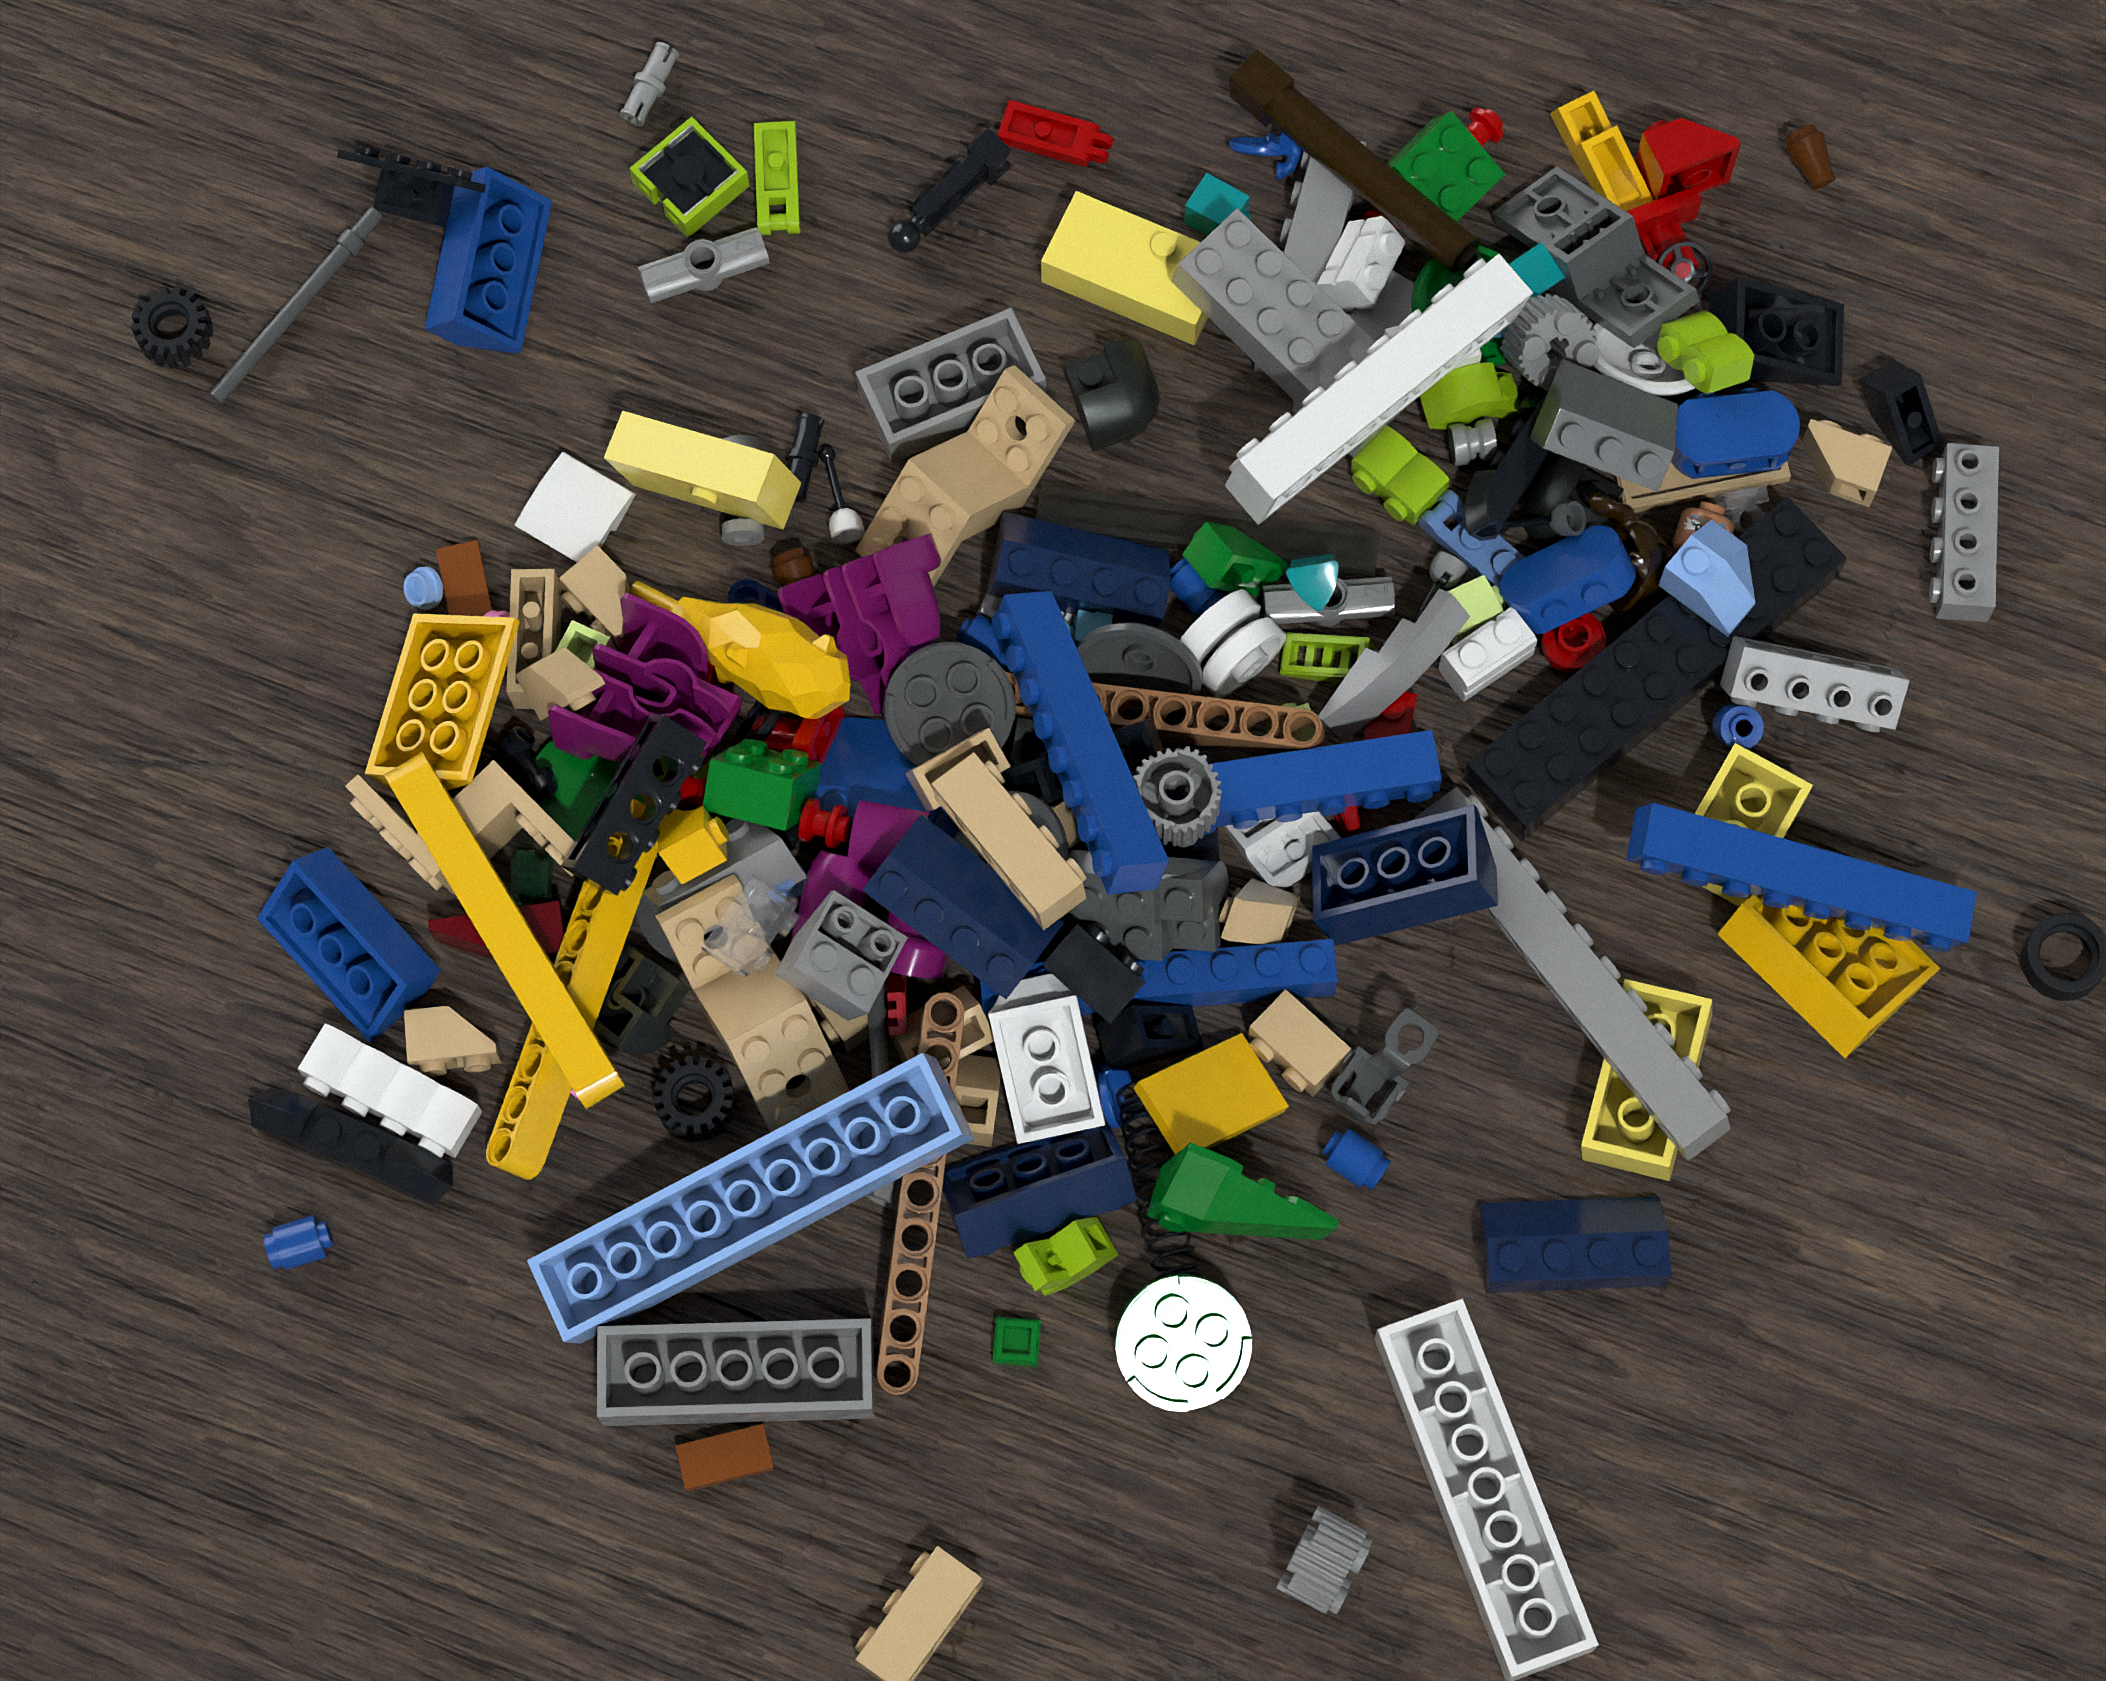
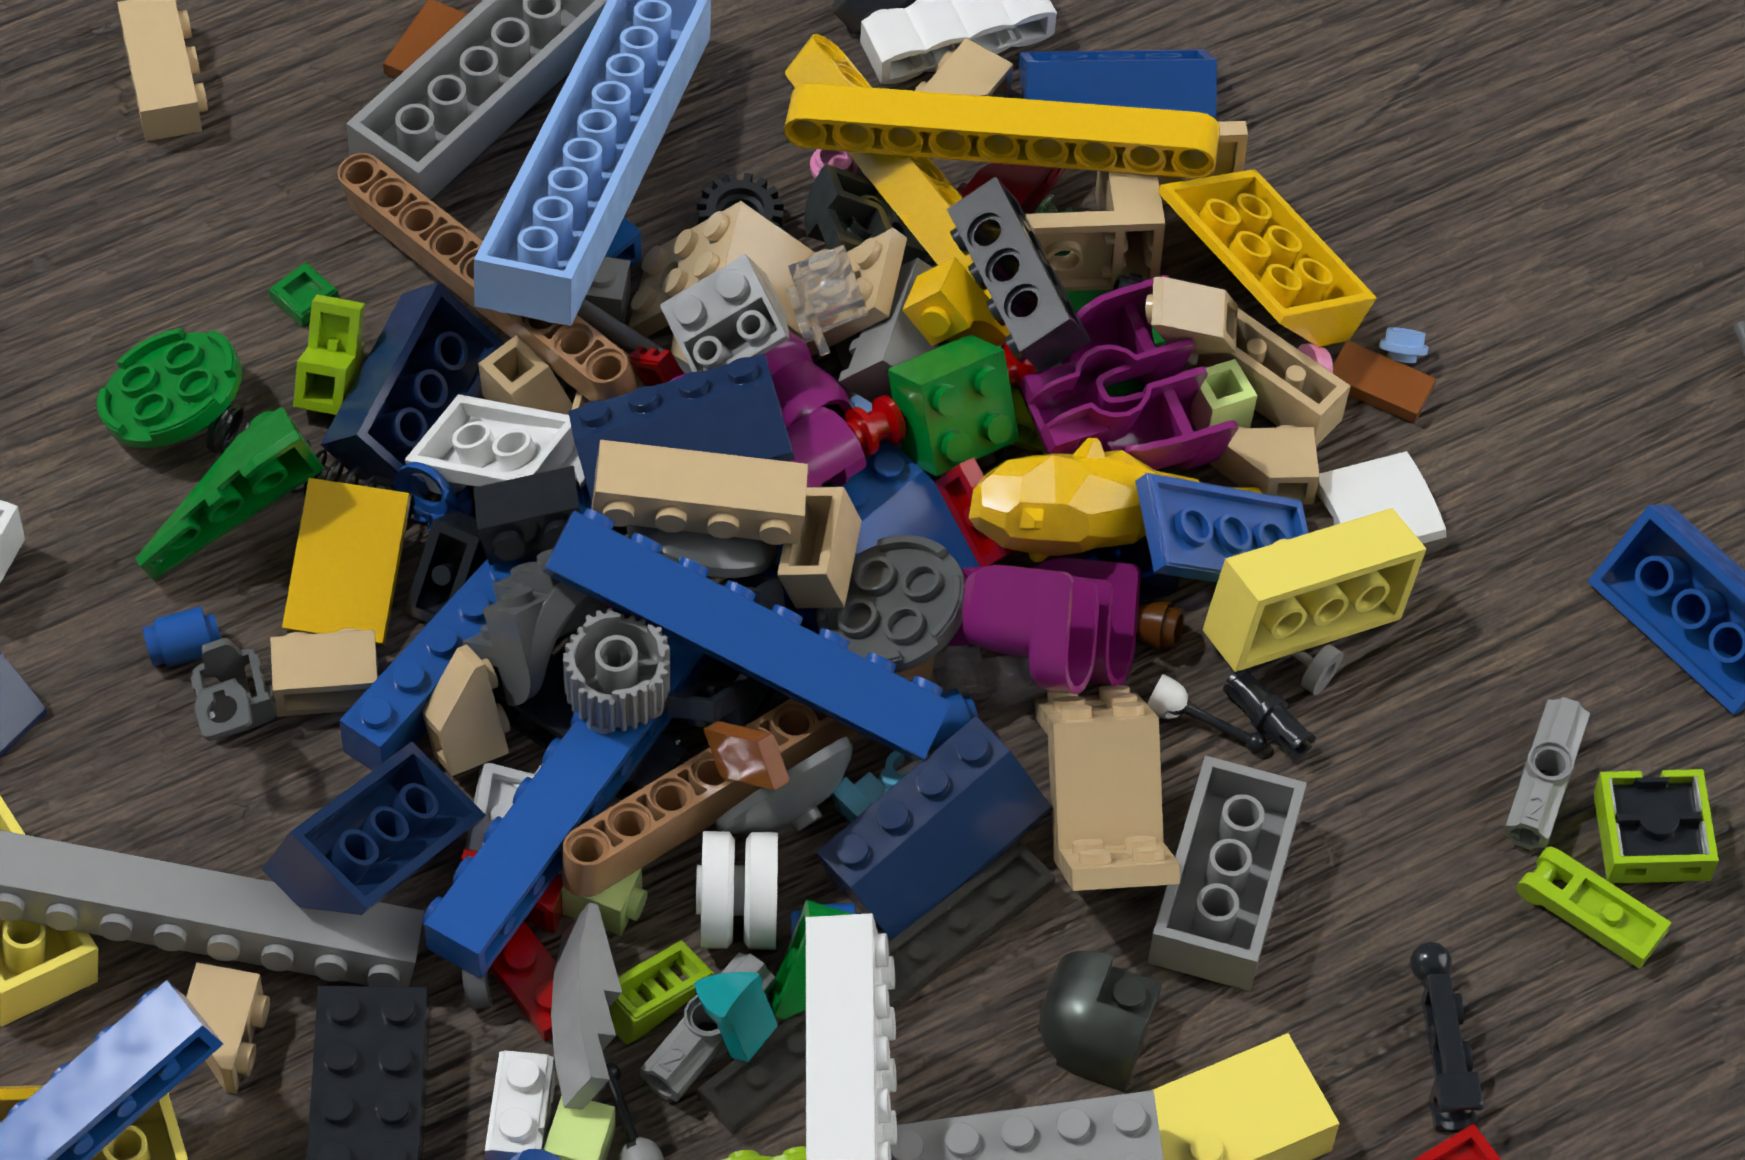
camera: 125 degrees right, 15 degrees down
(703, 556) = (1201, 524): none -> blue tile
(1164, 669) = (746, 755): none -> dark orange tile
(1589, 880) = (233, 1008): none -> tan slope

